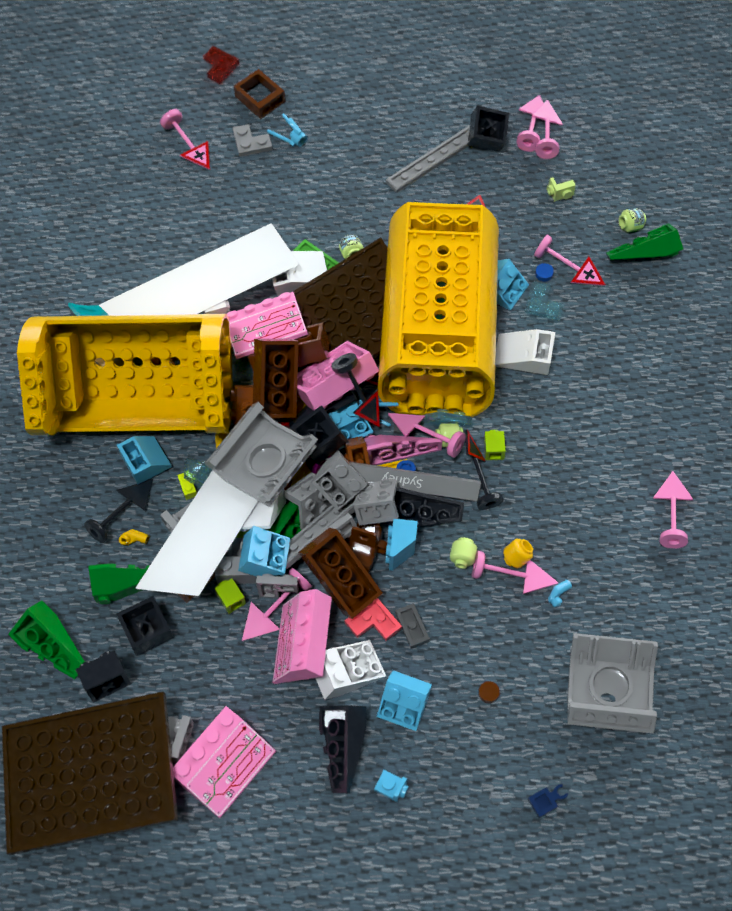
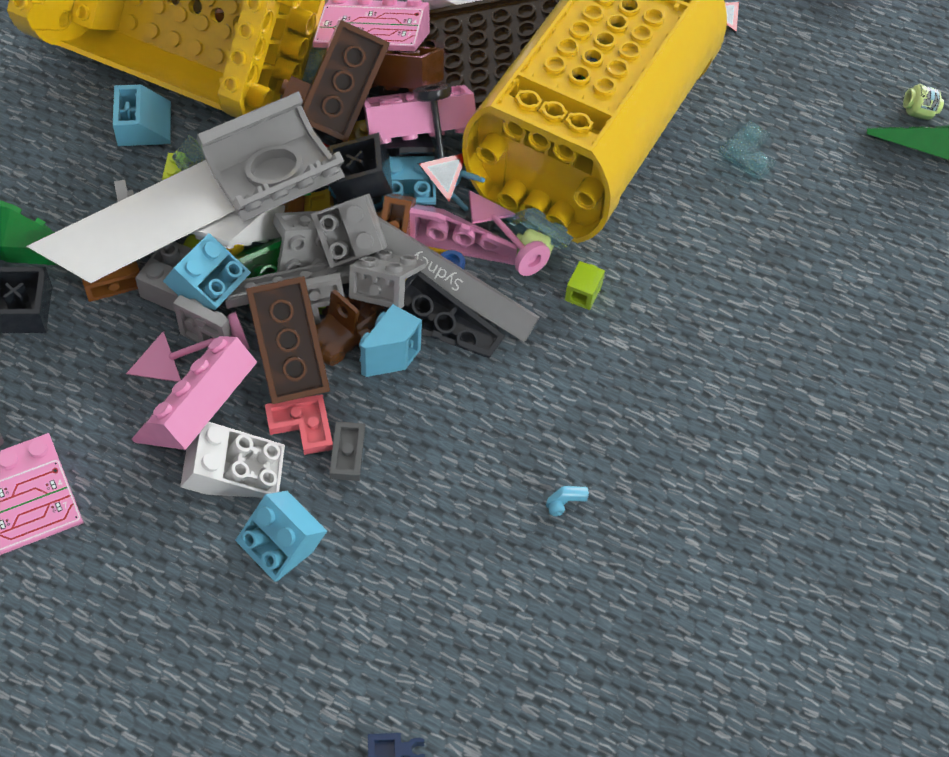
camera: 20 degrees right, 5 degrees down
(132, 536) = (73, 198): yellow arm -> none
(135, 493) = (108, 155): black piece -> none
(230, 595) = (142, 314): lime brick -> none
(344, 734) = (182, 532): black wedge -> none
(391, 786) = (199, 633): medium azure bracket -> none
(463, 552) = (466, 392): yellowish green head -> none
(488, 500) = (537, 344): black piece -> none
(488, 692) = (398, 578): reddish brown tile -> none
(510, 284) = (710, 108): medium azure slope -> none
(518, 553) = (537, 423): yellow head -> none
(525, 351) = (692, 194): white slope -> none
(534, 577) = (544, 466): bright pink piece -> none
(544, 272) = (771, 117): blue tile -> none
(561, 191) = (847, 34): yellowish green bracket -> none
(586, 274) = (826, 141): bright pink piece -> none
(616, 668) = (582, 622): light grey panel -> none
(673, 490) = (796, 441): bright pink piece -> none

